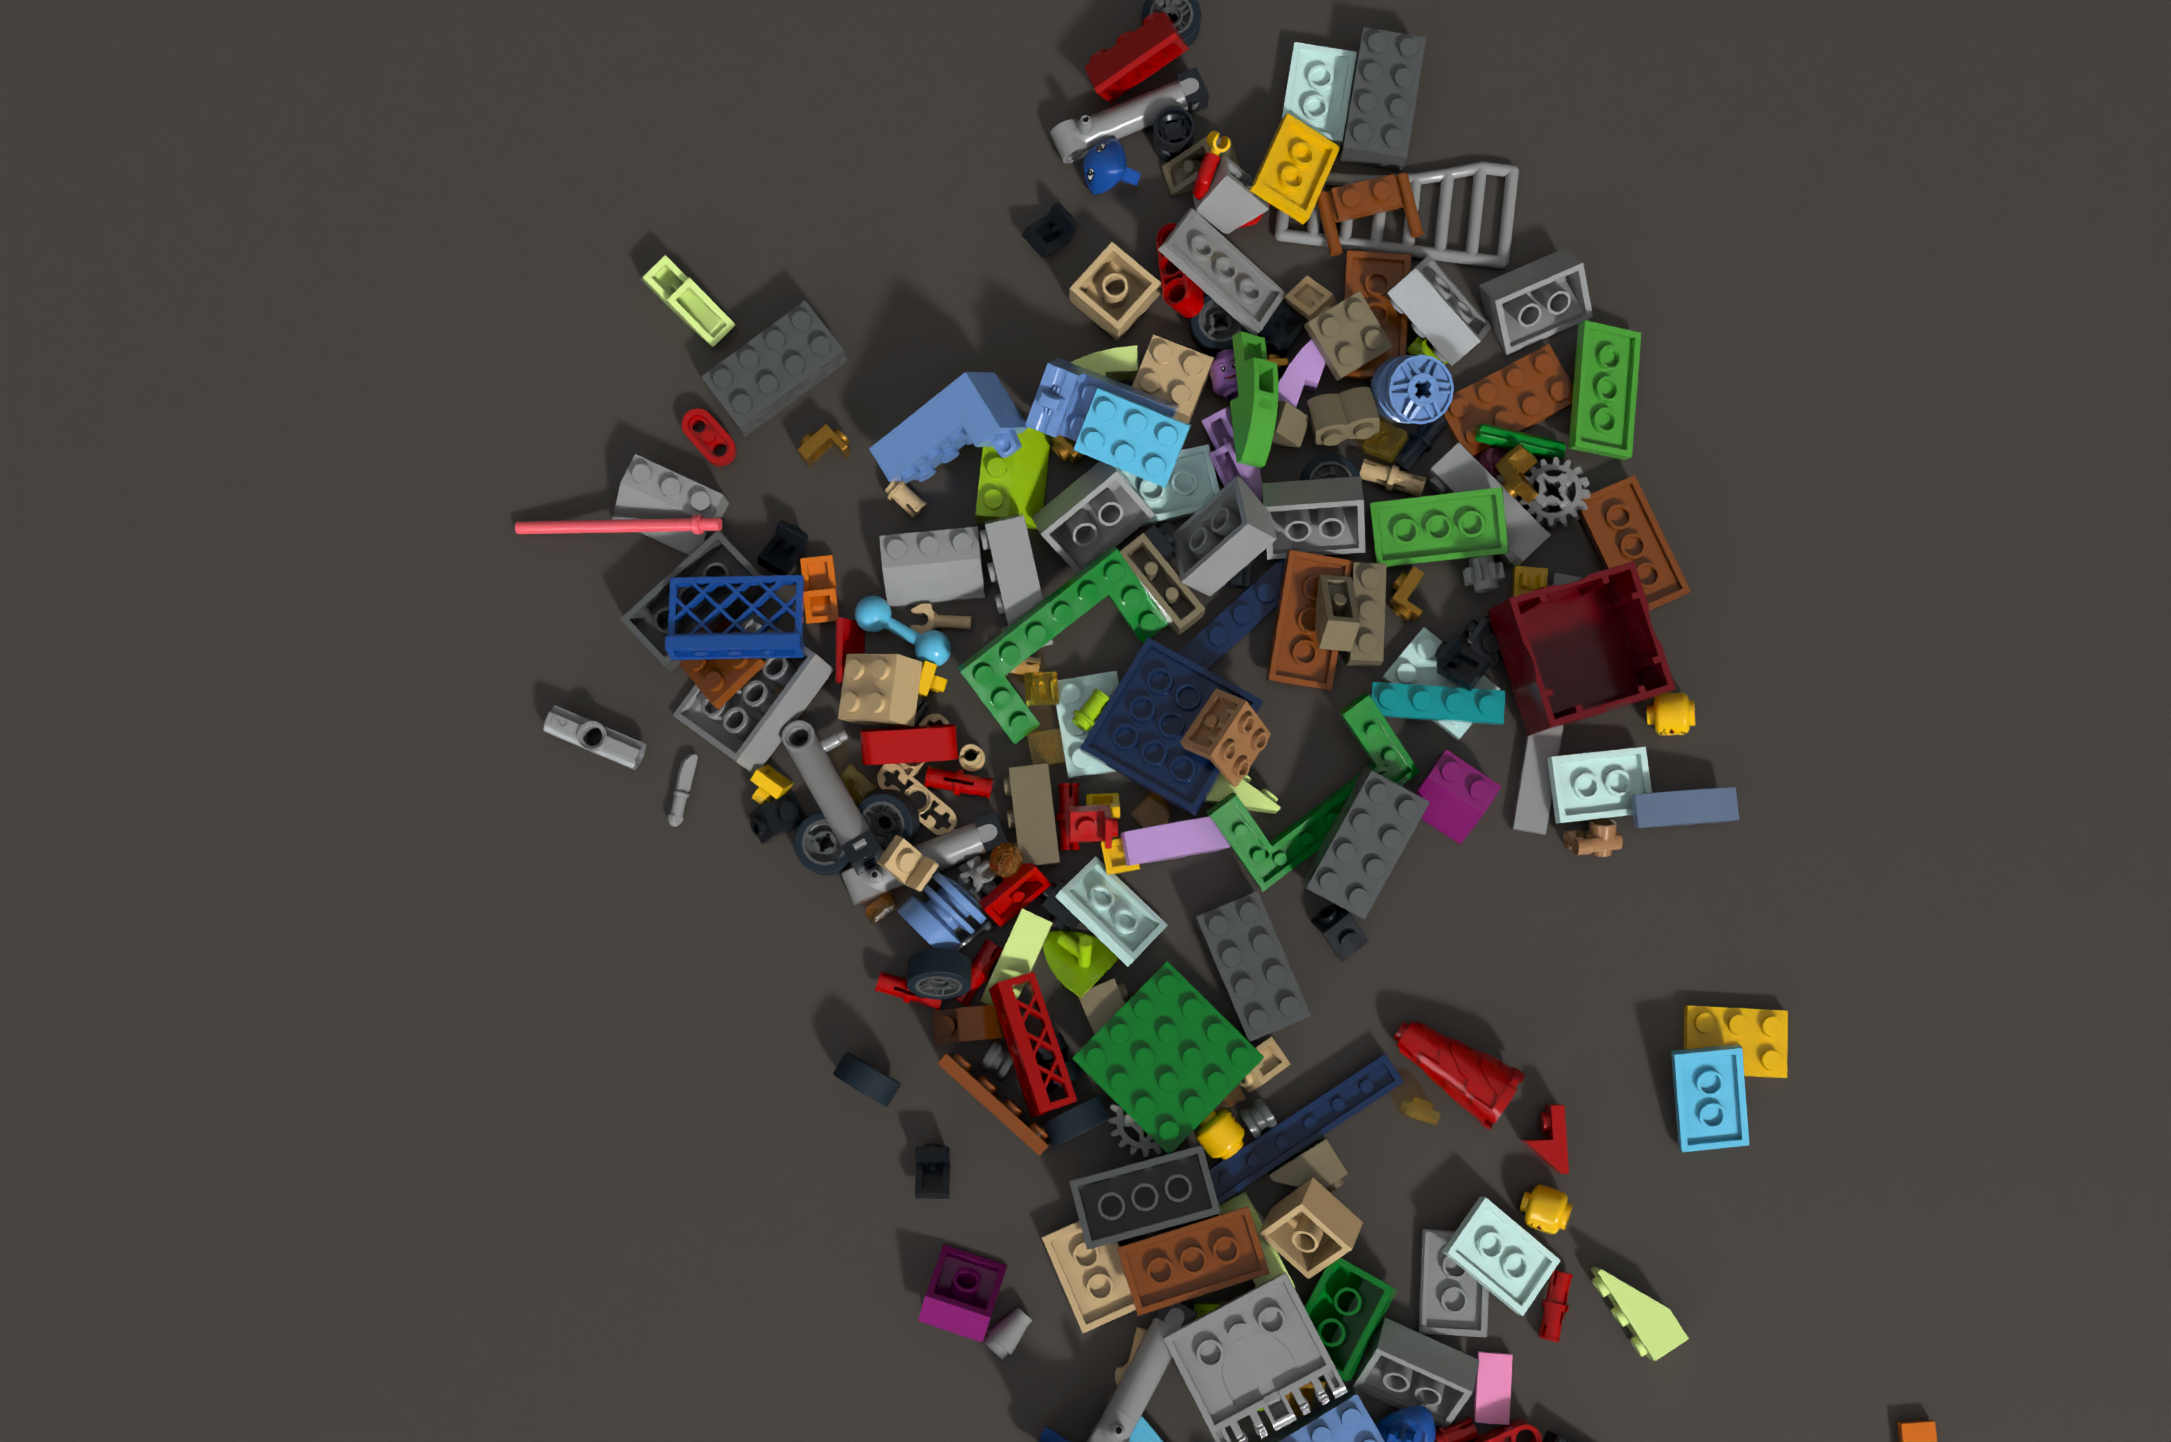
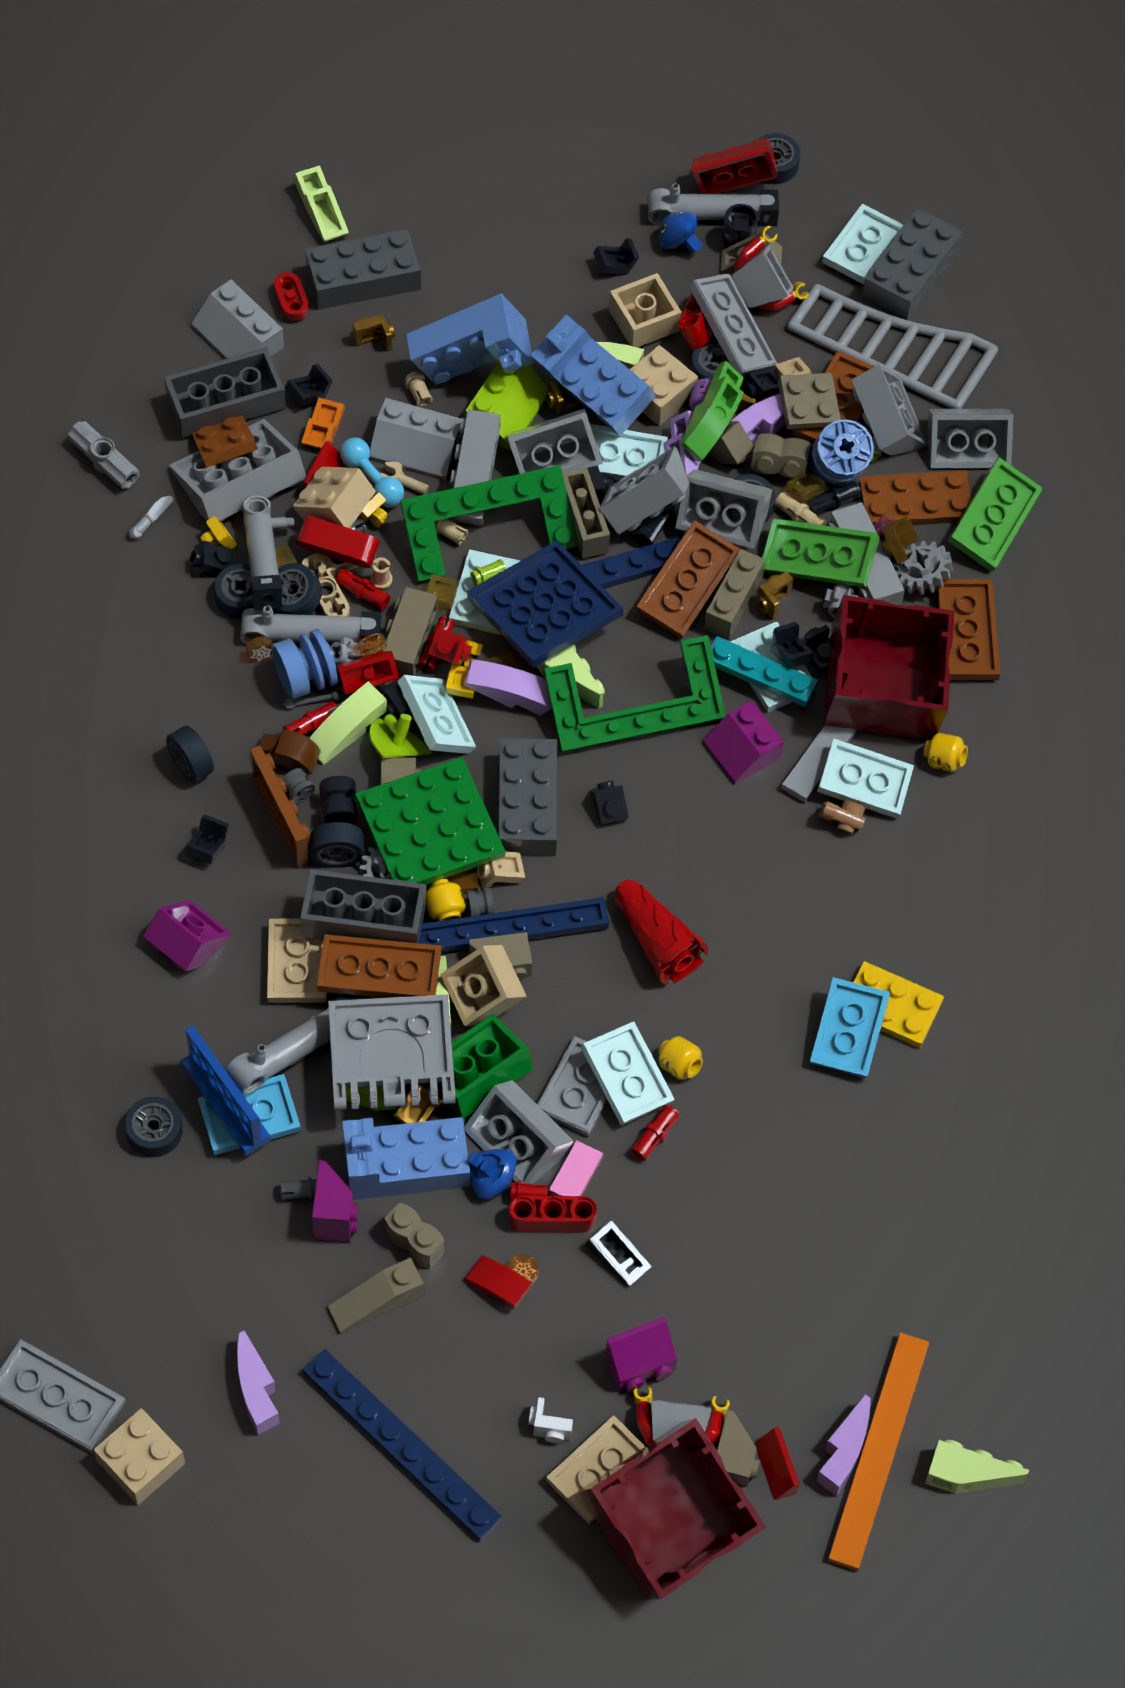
camera: 20 degrees right, 20 degrees down
(696, 524) = (253, 337): coral bar -> none
(729, 644) = (243, 418): blue fence -> none
(898, 987) = (253, 712): red pin -> none
(907, 864) = (295, 612): tan bracket -> none
(939, 973) = (282, 698): black wheel -> none
(1007, 1333) = (206, 977): light grey cone -> none
(1020, 1048) = (319, 772): red fence -> none
(1041, 688) = (458, 547): clear yellow plate -> none
(1132, 437) = (607, 392): medium azure plate -> none
(1227, 735) = (586, 621): medium nougat bracket -> none
(1295, 168) = (820, 278): yellow plate -> none
(1336, 613) = (708, 576): dark tan slope -> none
(1364, 842) = (657, 739): dark grey brick -> none
(1367, 199) = (866, 322): dark orange plate -> none
(1421, 1111) = (611, 950): clear yellow plate -> none
(1510, 439) = (897, 512): green axle -> none
(1553, 1149) = (705, 1014): red slope -> none
(1650, 1322) = (725, 1167): yellowish green slope -> none
(1685, 807) = (925, 818): sand blue slope -> none

